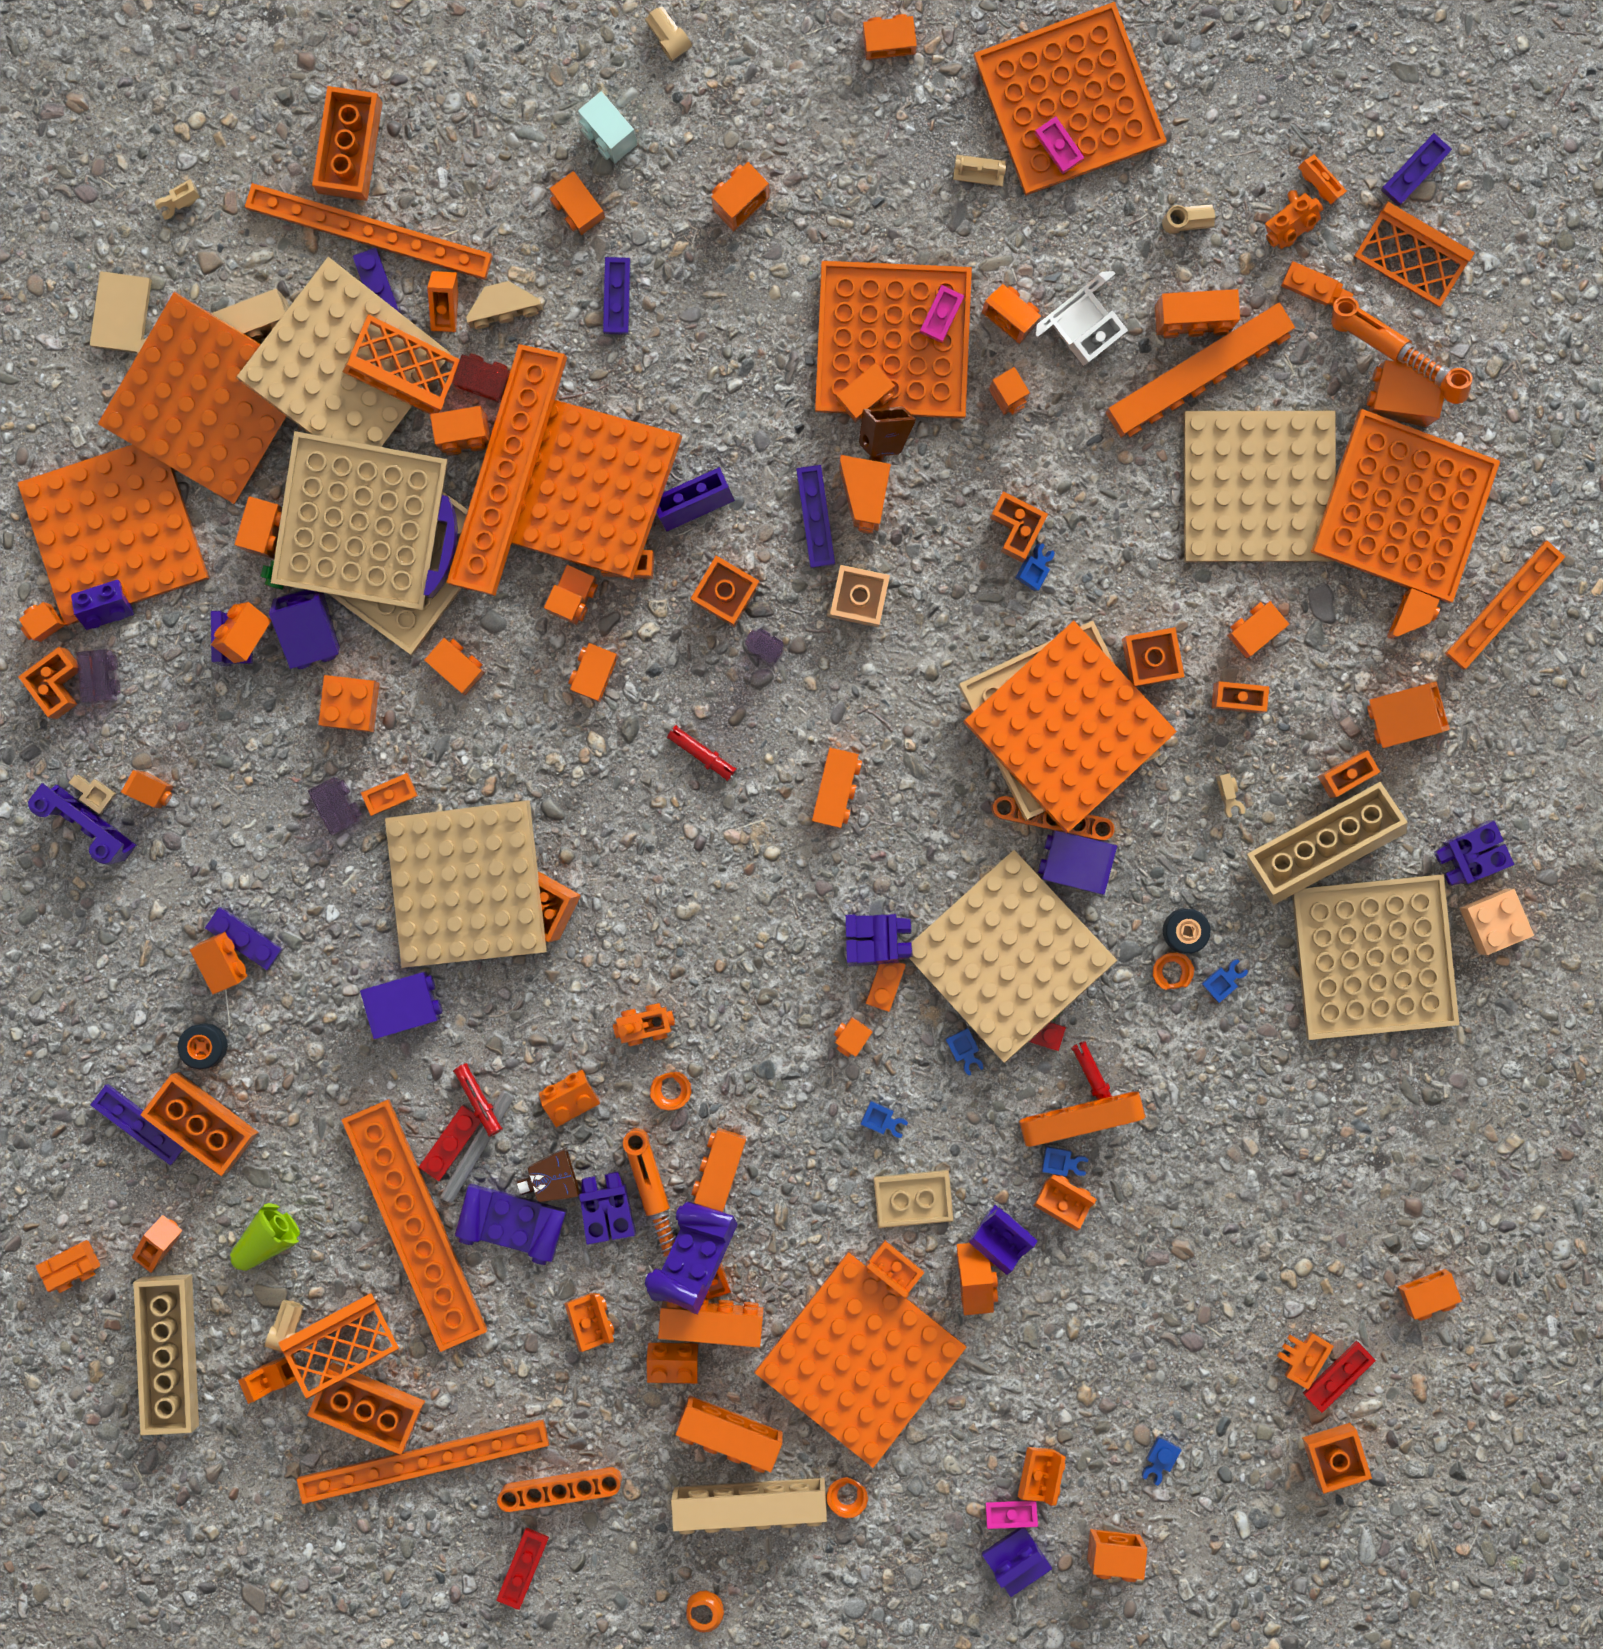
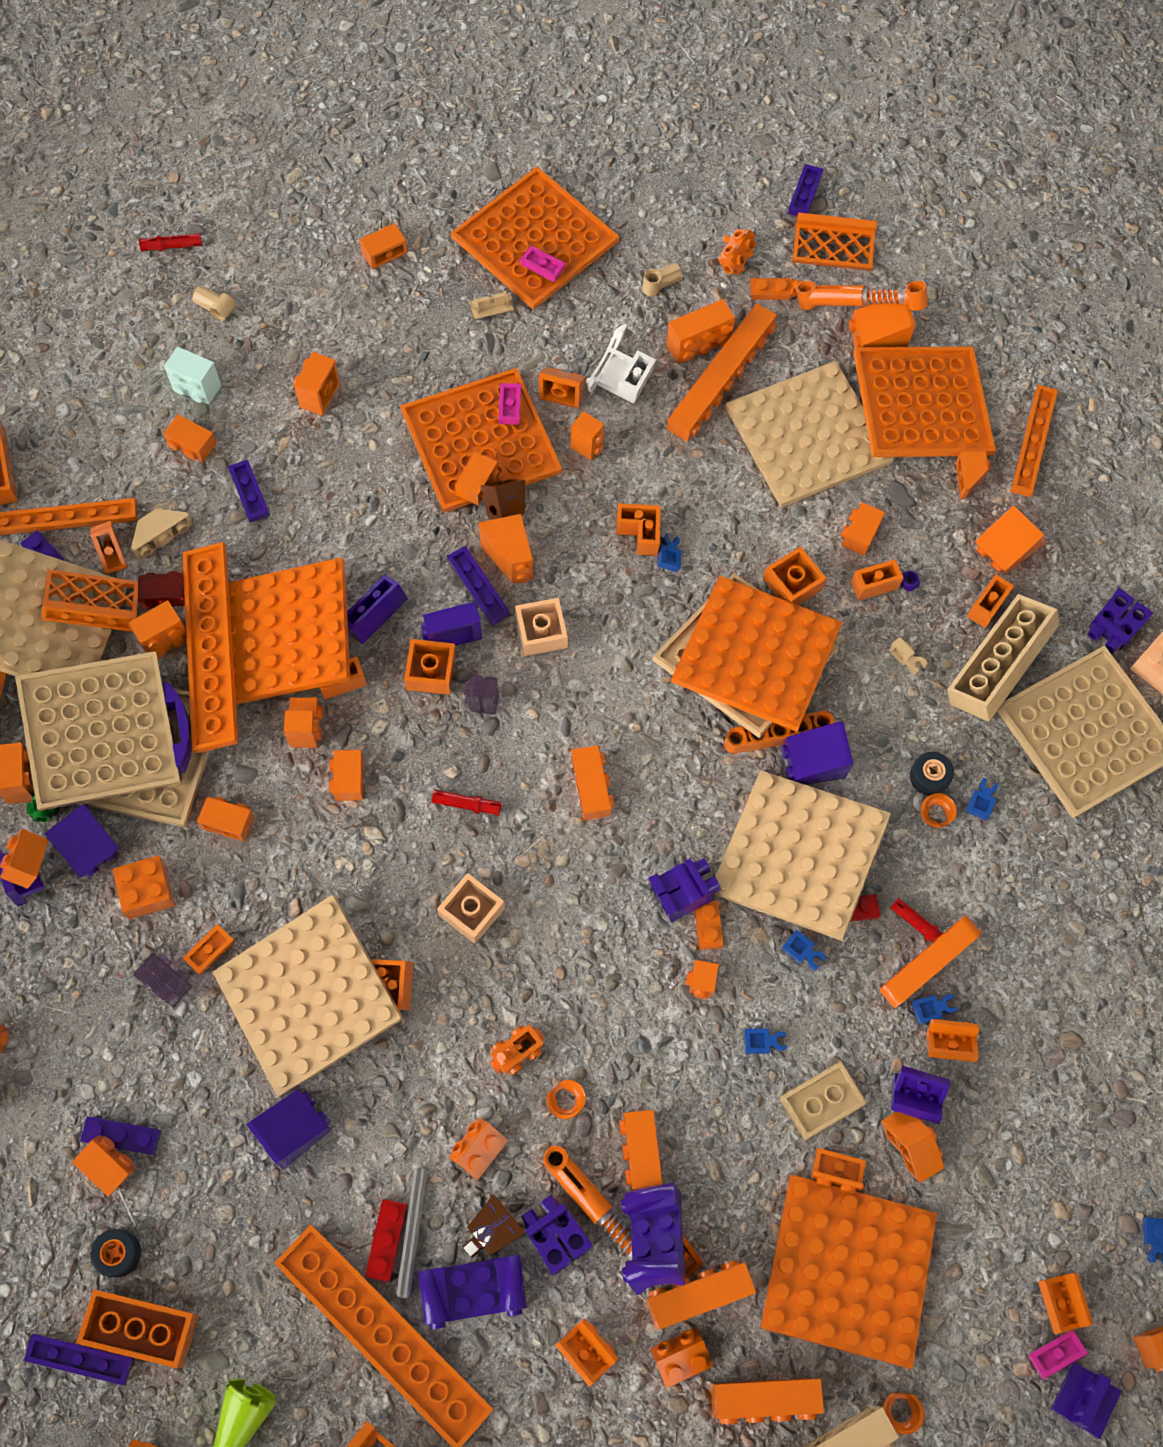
camera: 30 degrees left, 20 degrees down
(492, 1125) = (417, 1201): red pin -> none
(658, 867) = (471, 908): none -> light nougat brick
(764, 557) = (453, 625): none -> dark purple window
(1283, 710) = (913, 577): none -> dark purple plate
(1322, 179) = (735, 218): orange plate -> none

